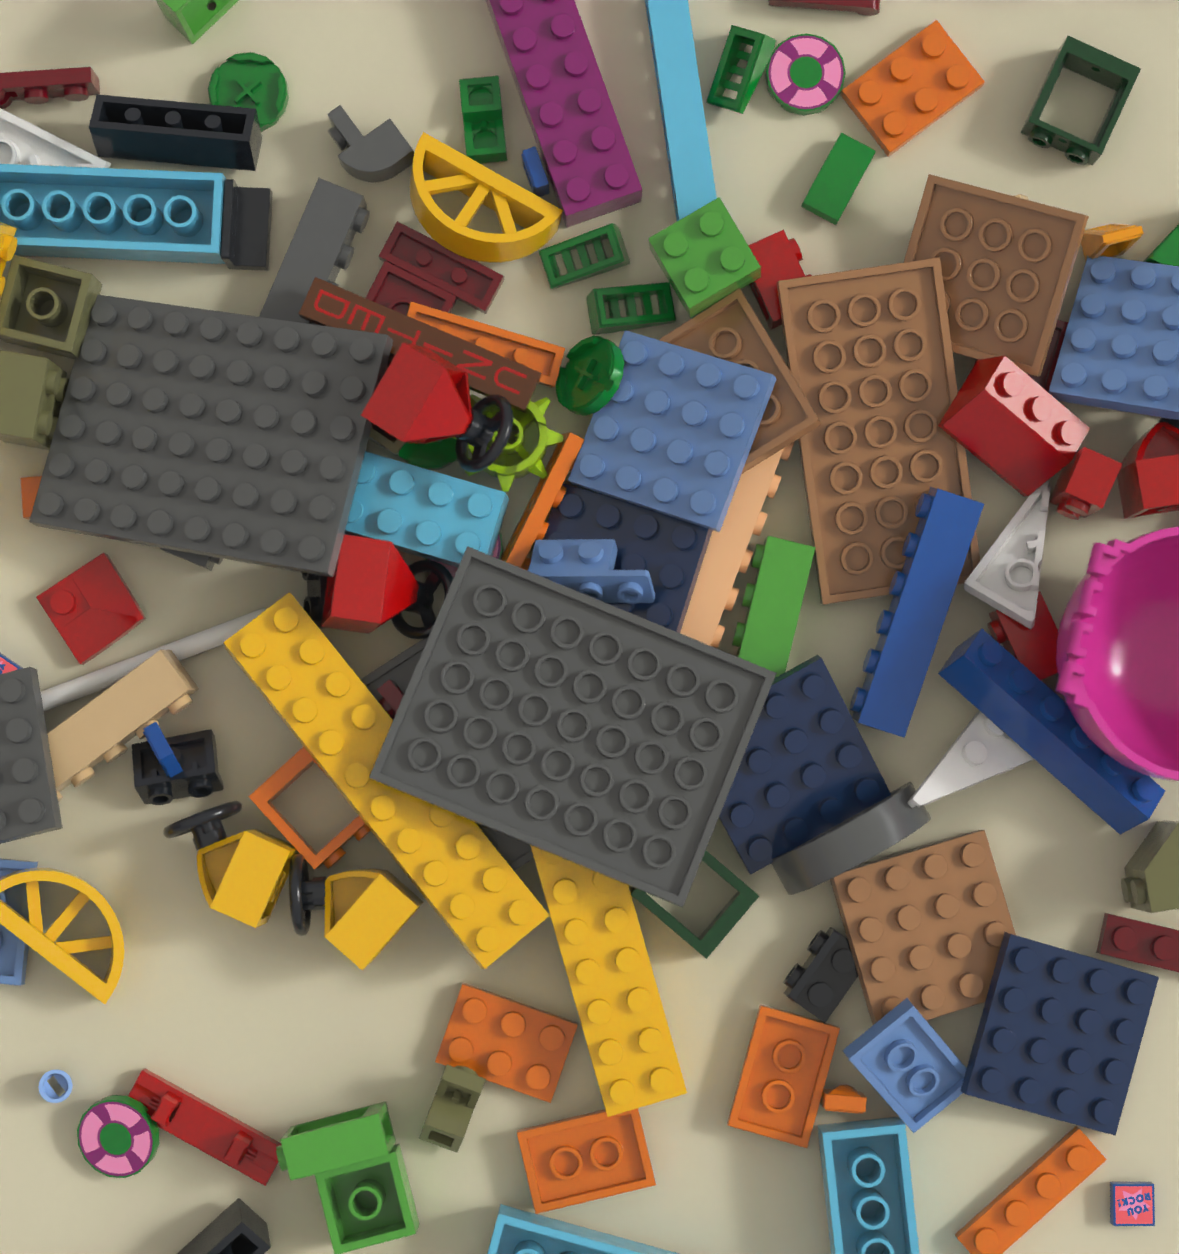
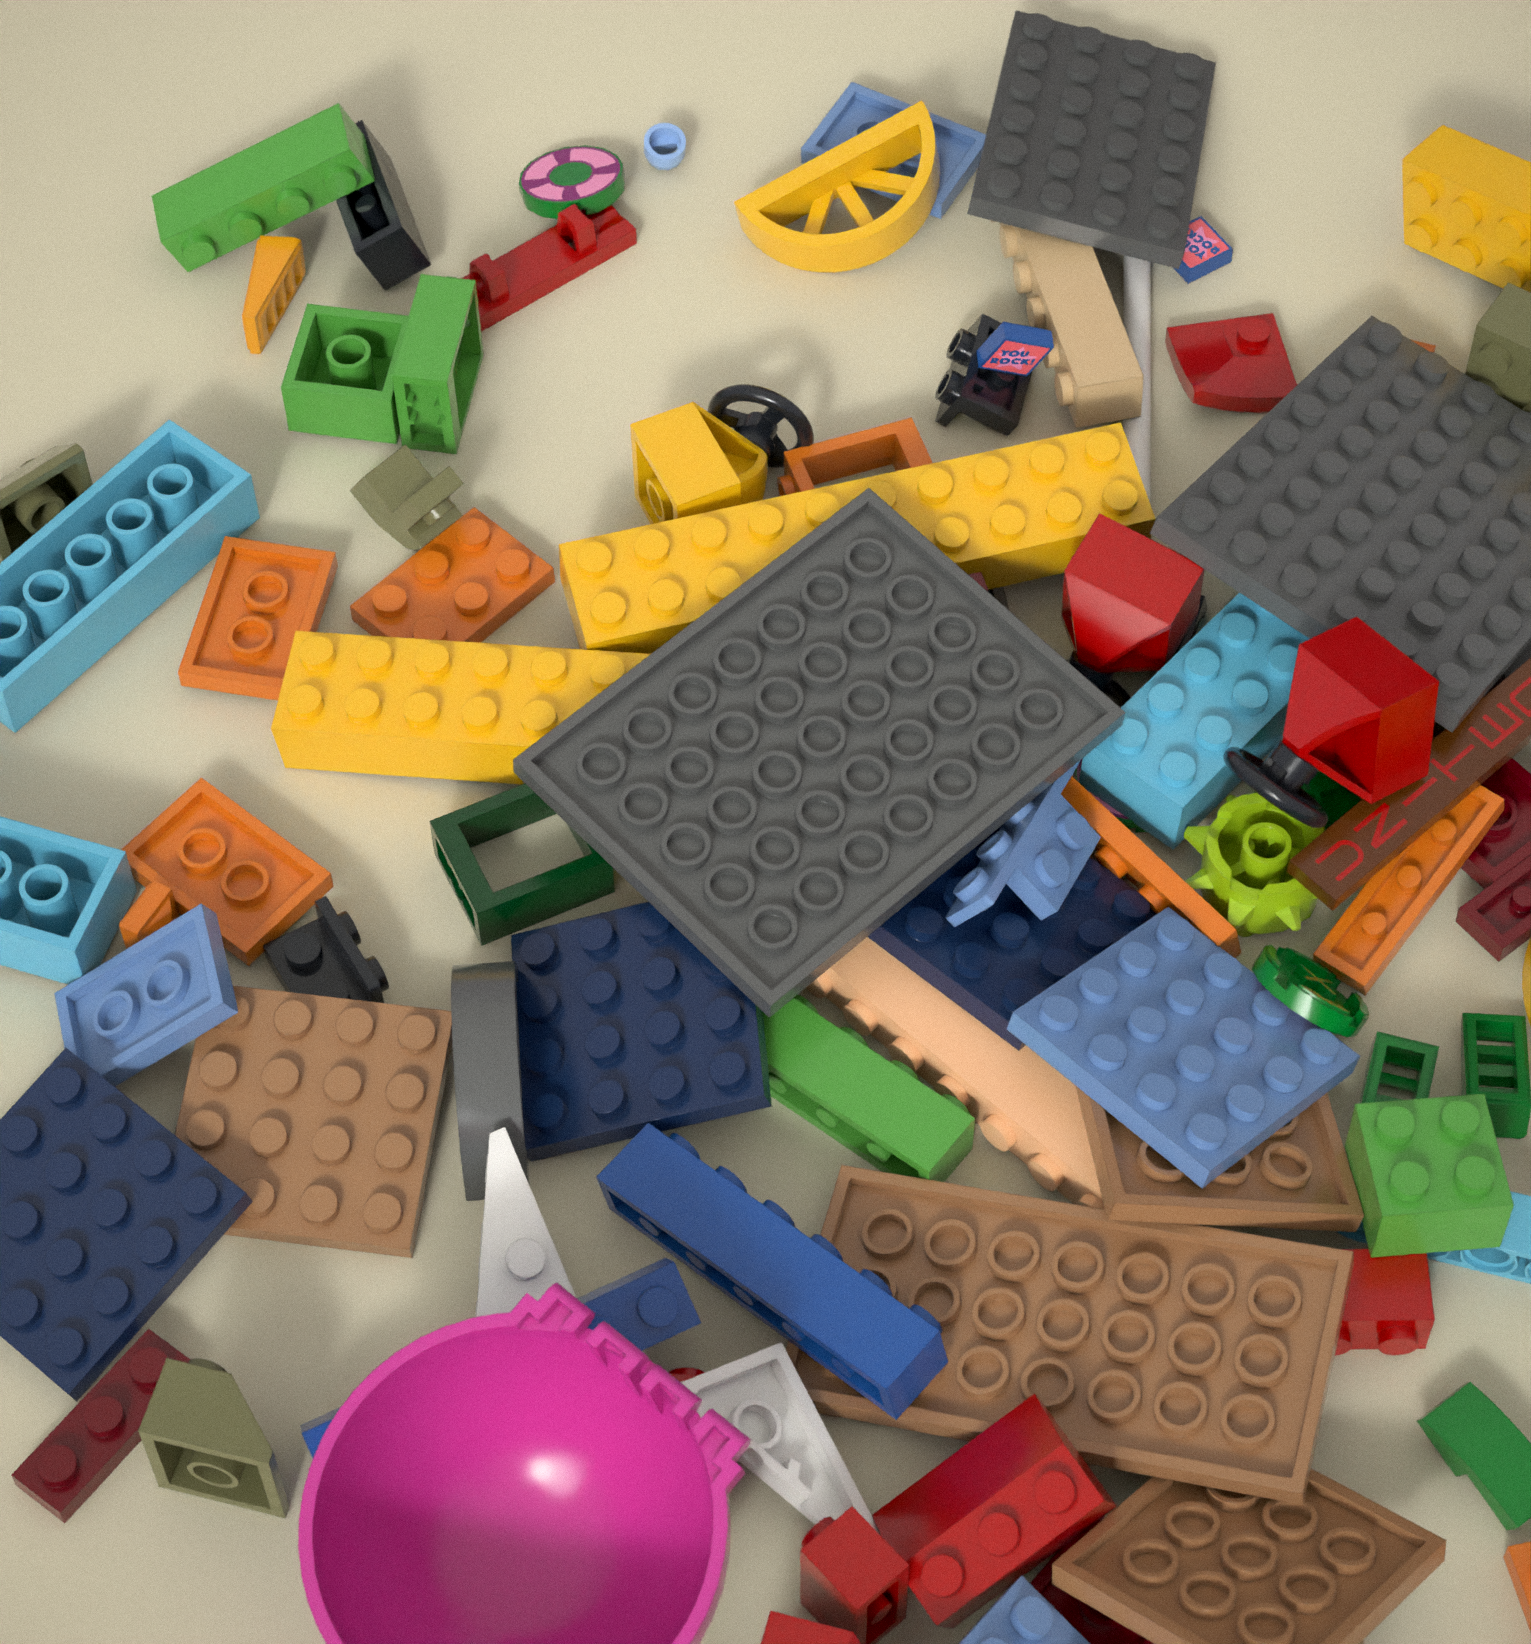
camera: 115 degrees right, 30 degrees down
(240, 872) = (828, 370): yellow piece -> none

